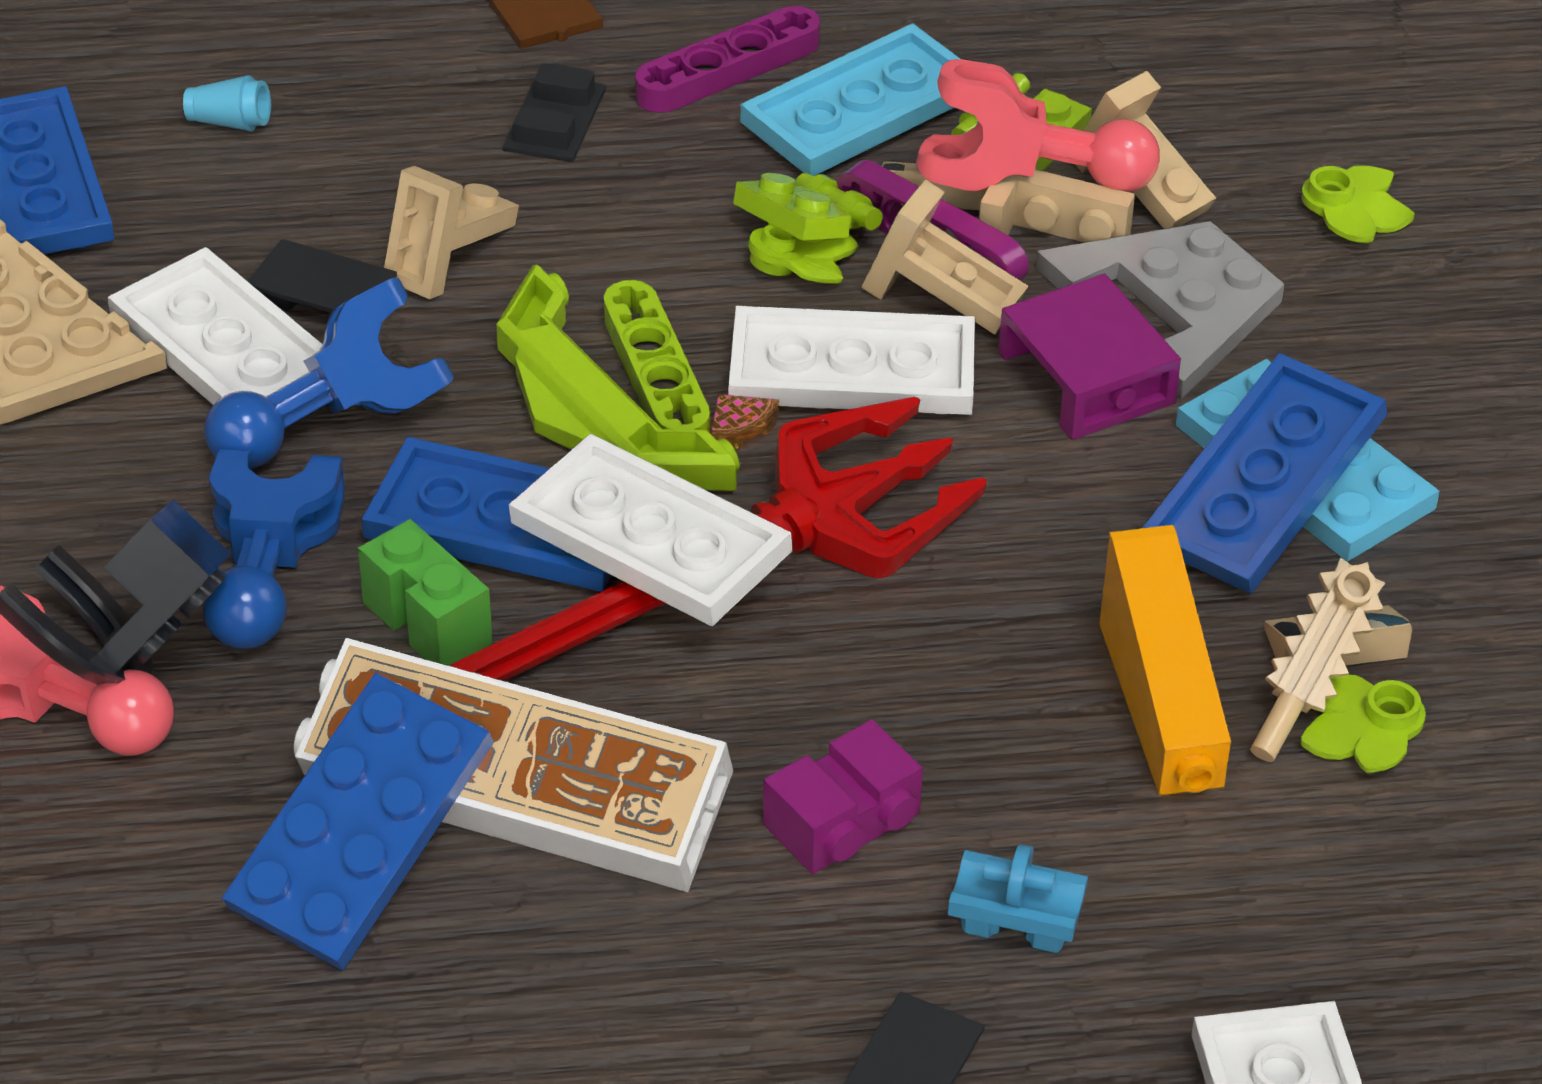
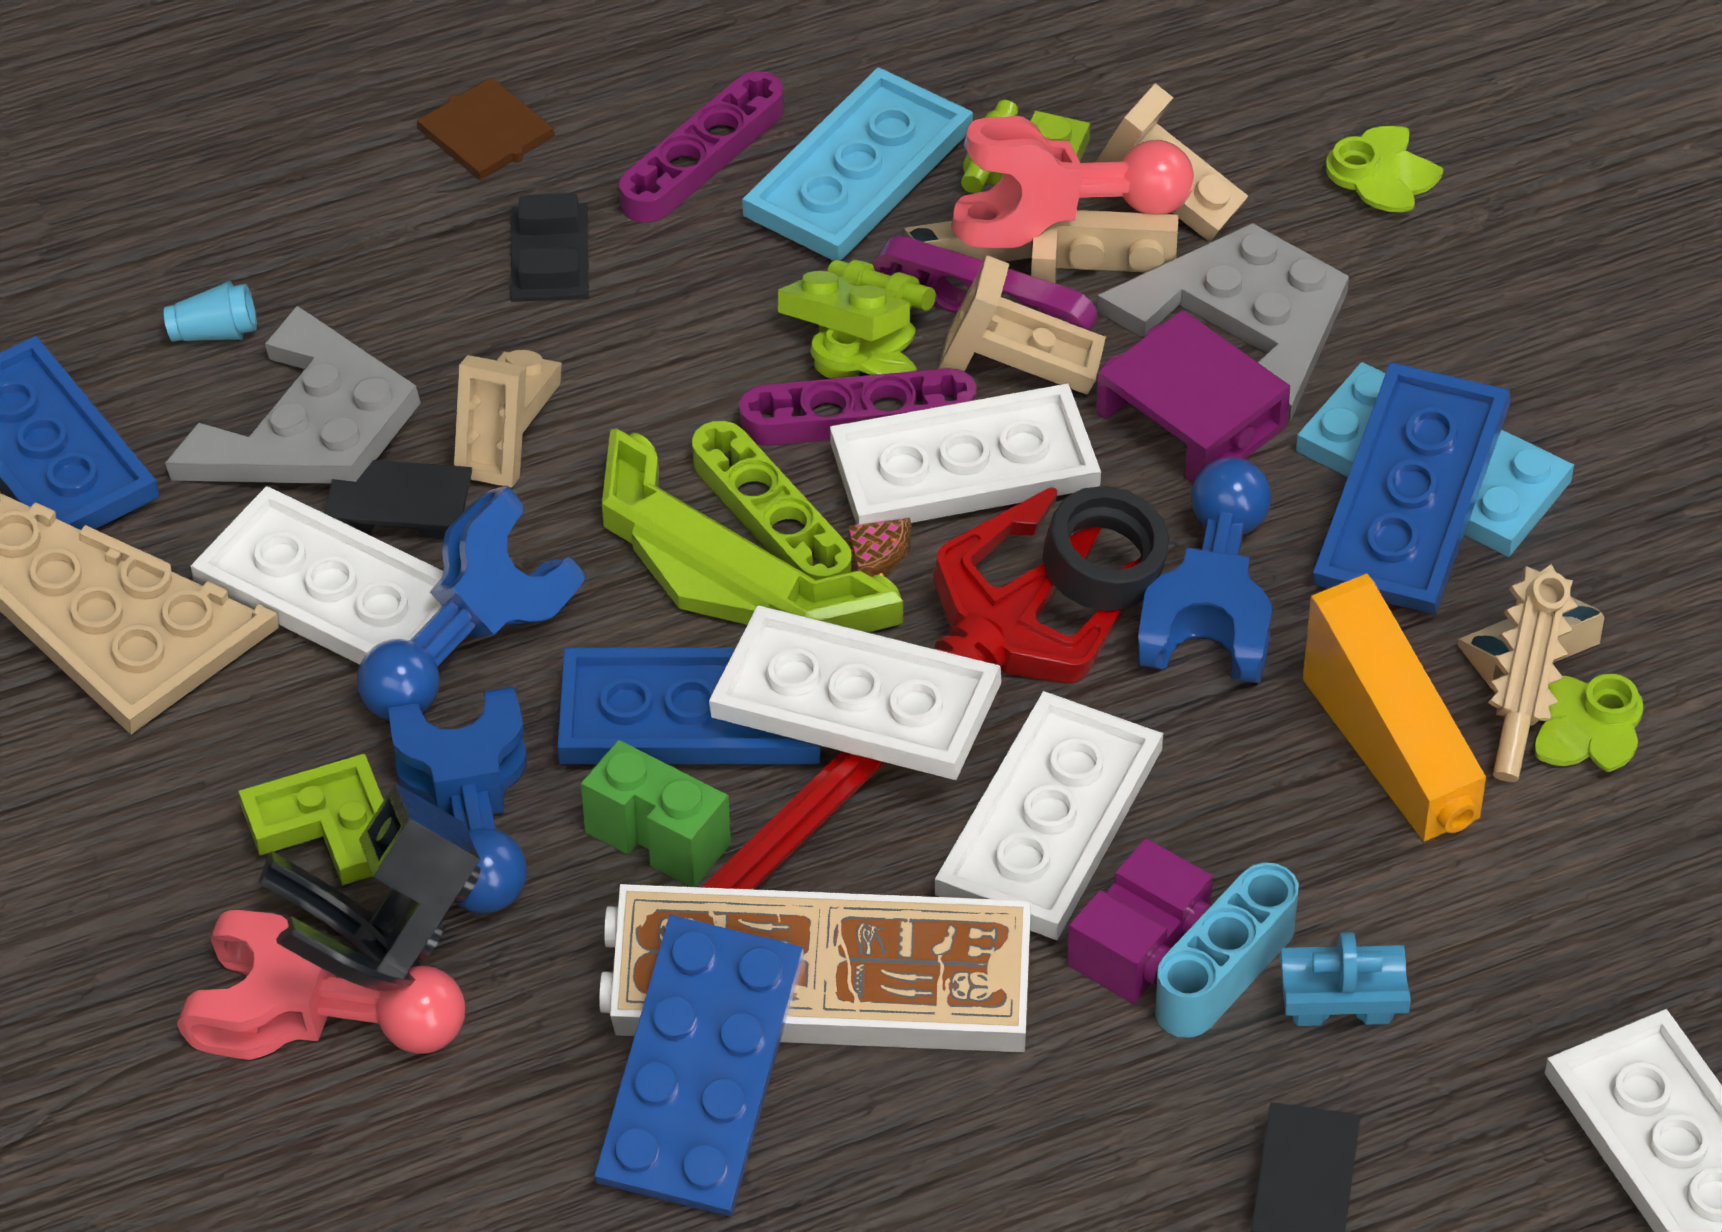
camera: 15 degrees left, 5 degrees up
(109, 516) = (317, 803): none -> lime plate
(279, 213) = (321, 428): none -> light grey wing
(690, 284) = (852, 394): none -> magenta beam
(801, 679) = (1051, 811): none -> white plate
(914, 842) = (1226, 950): none -> medium azure beam
(944, 421) = (1111, 510): none -> black tyre
(1037, 520) = (1212, 587): none -> blue piece

